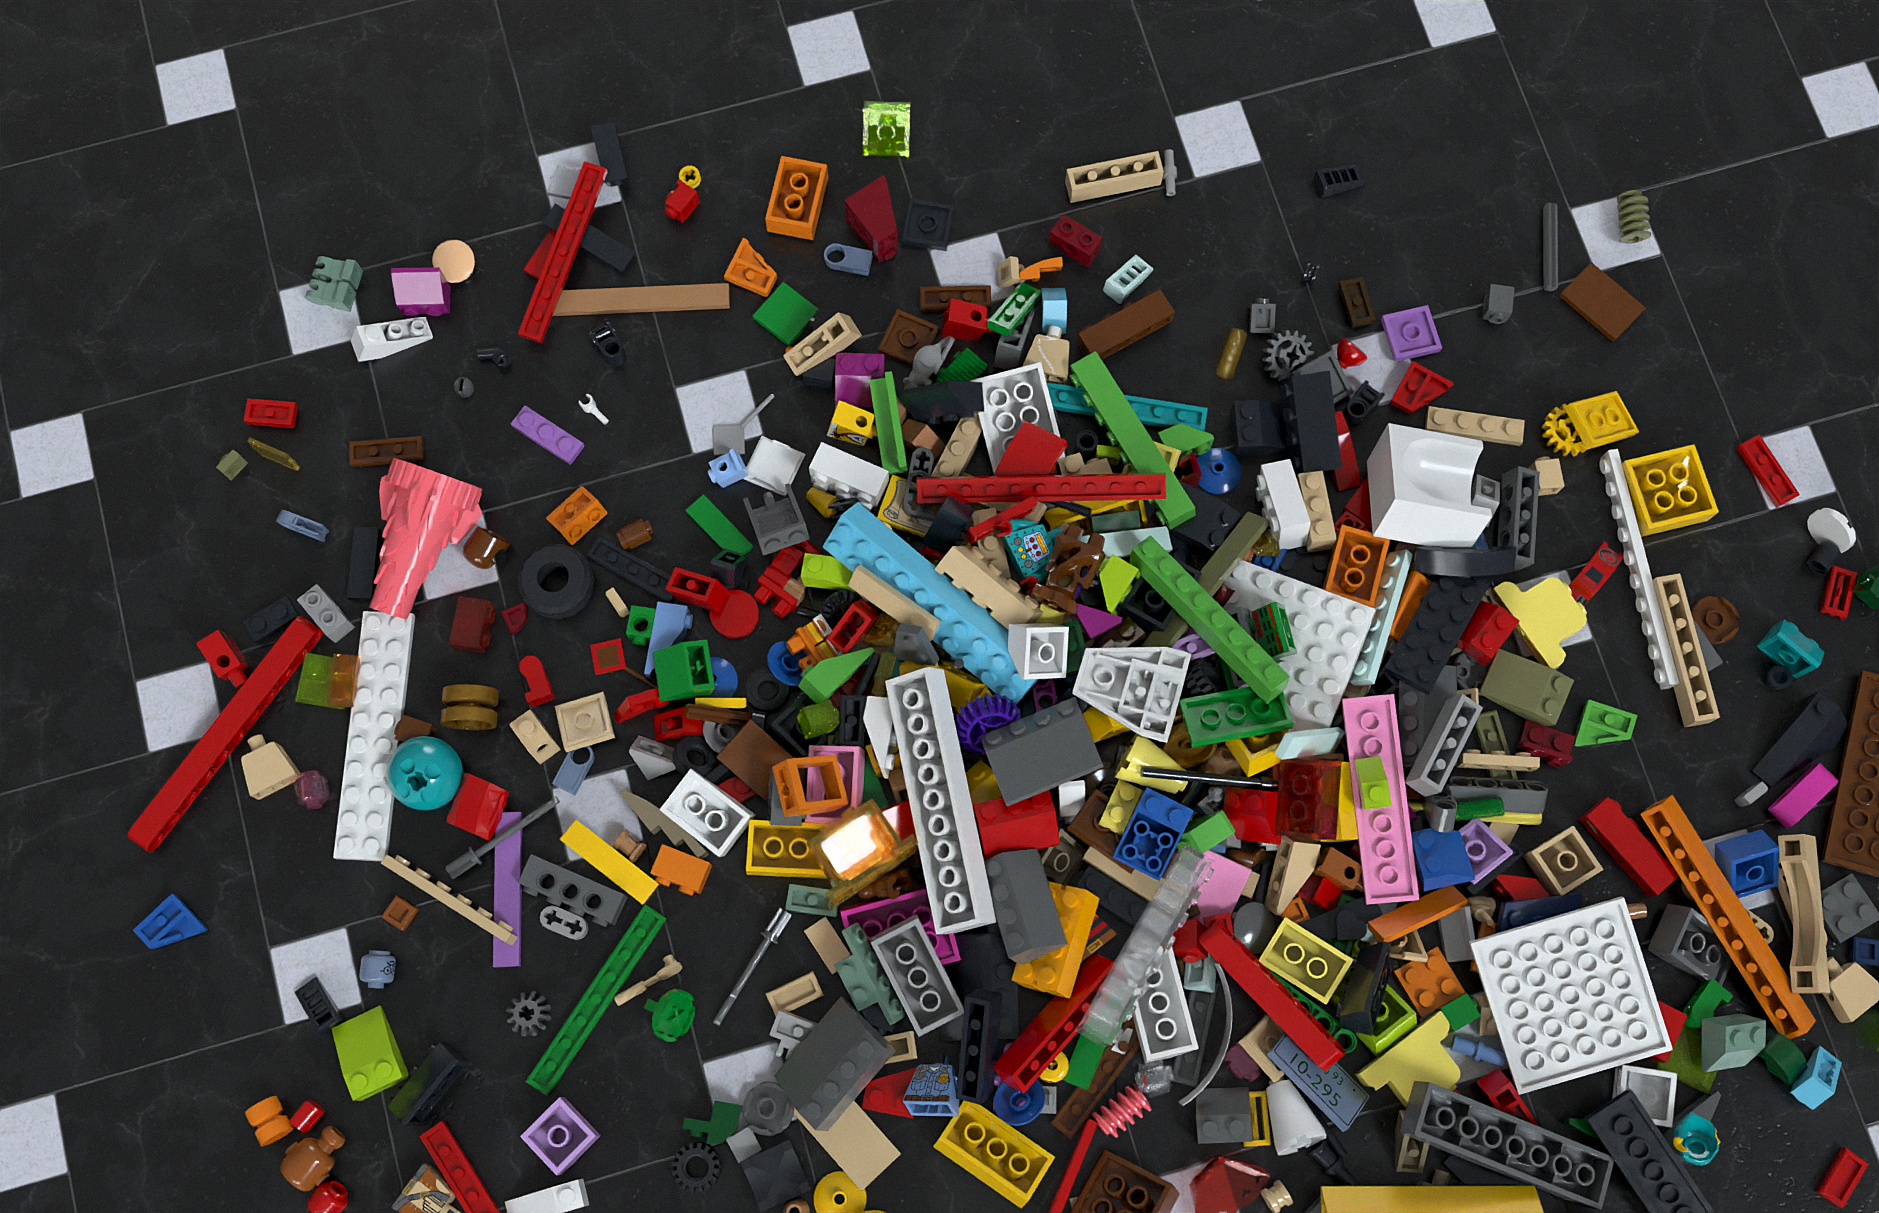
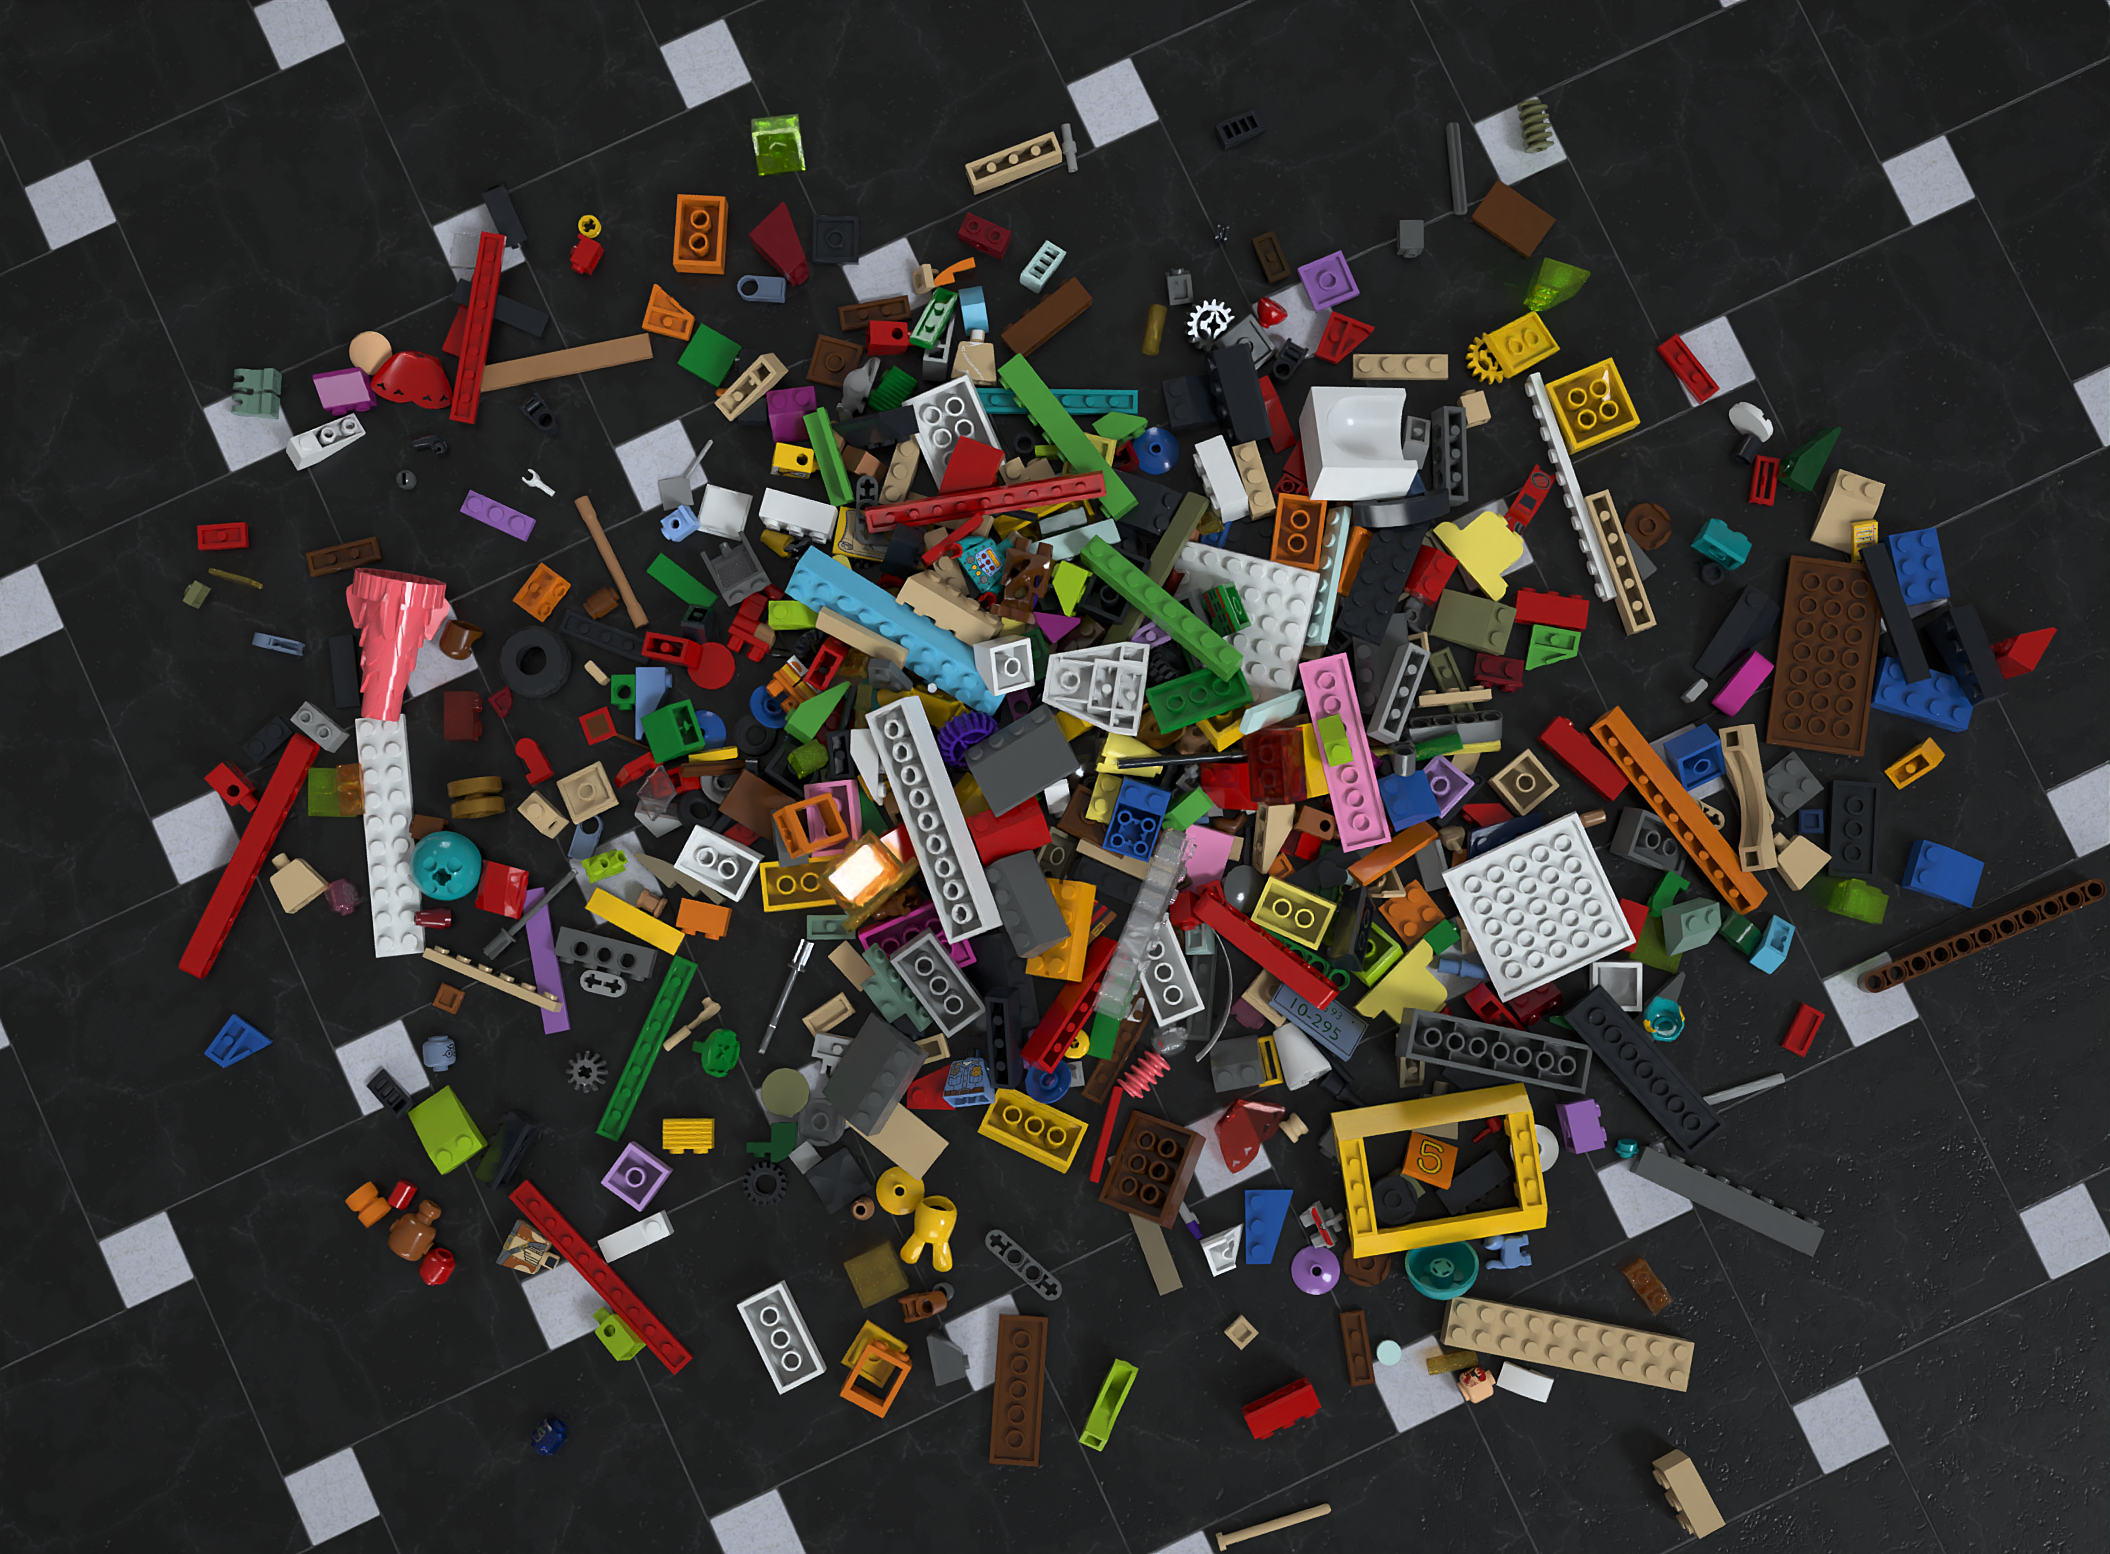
camera: 10 degrees left, 10 degrees up
(400, 825) = (433, 918): none -> dark red cone
(491, 293) = (415, 379): none -> red piece
(588, 798) = (605, 865): none -> lime hips
(623, 1099) = (688, 1134): none -> yellow brick
(655, 732) = (656, 793): none -> clear piece
(665, 543) = (633, 607): none -> medium nougat piece
(735, 1070) = (785, 1092): none -> olive tile
(1554, 1101) = (1536, 1003): none -> dark red bracket
(1607, 687) = (1550, 609): none -> red brick
(1642, 365) = (1553, 284): none -> clear neon green slope

